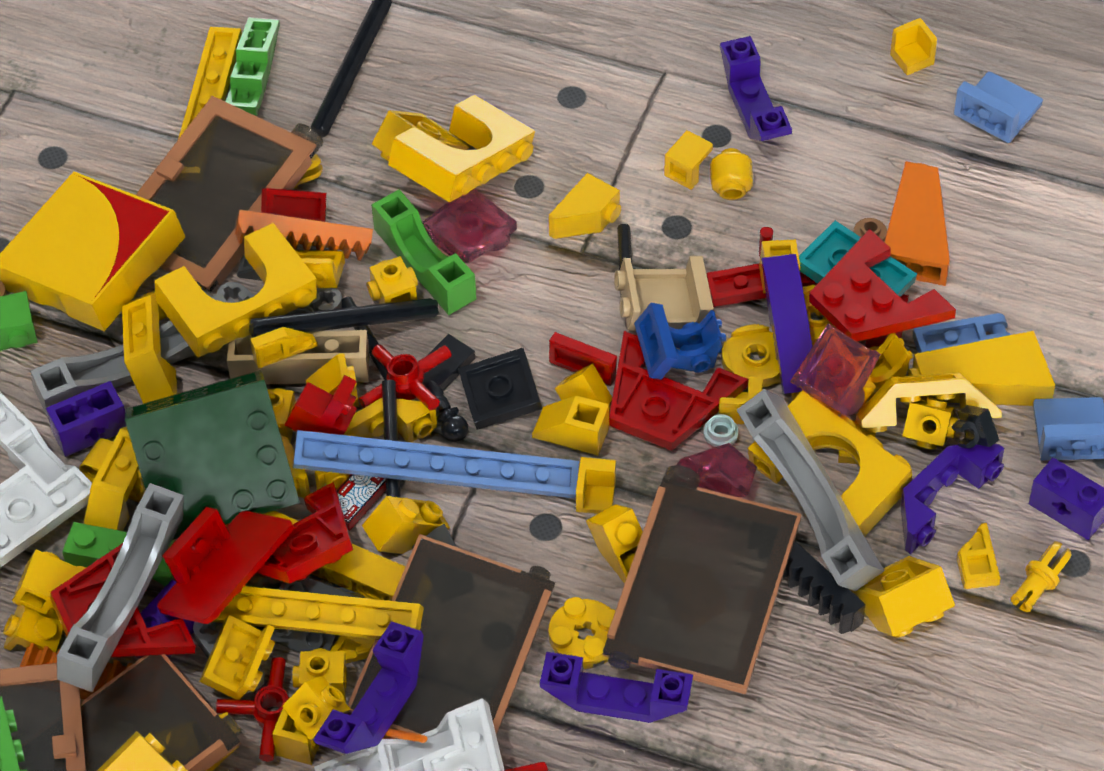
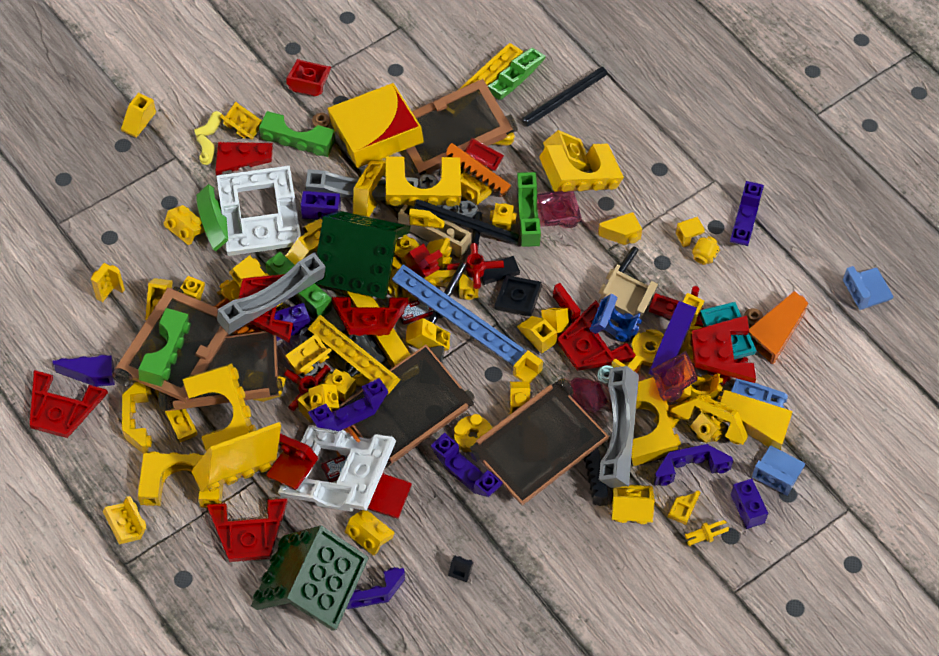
camera: 30 degrees right, 5 degrees up
(218, 561) = (325, 304): red bracket -> none
(453, 425) = (485, 301): black bar -> none
(913, 46) = (846, 234): yellow panel -> none
(977, 426) = (725, 442): black tile -> none

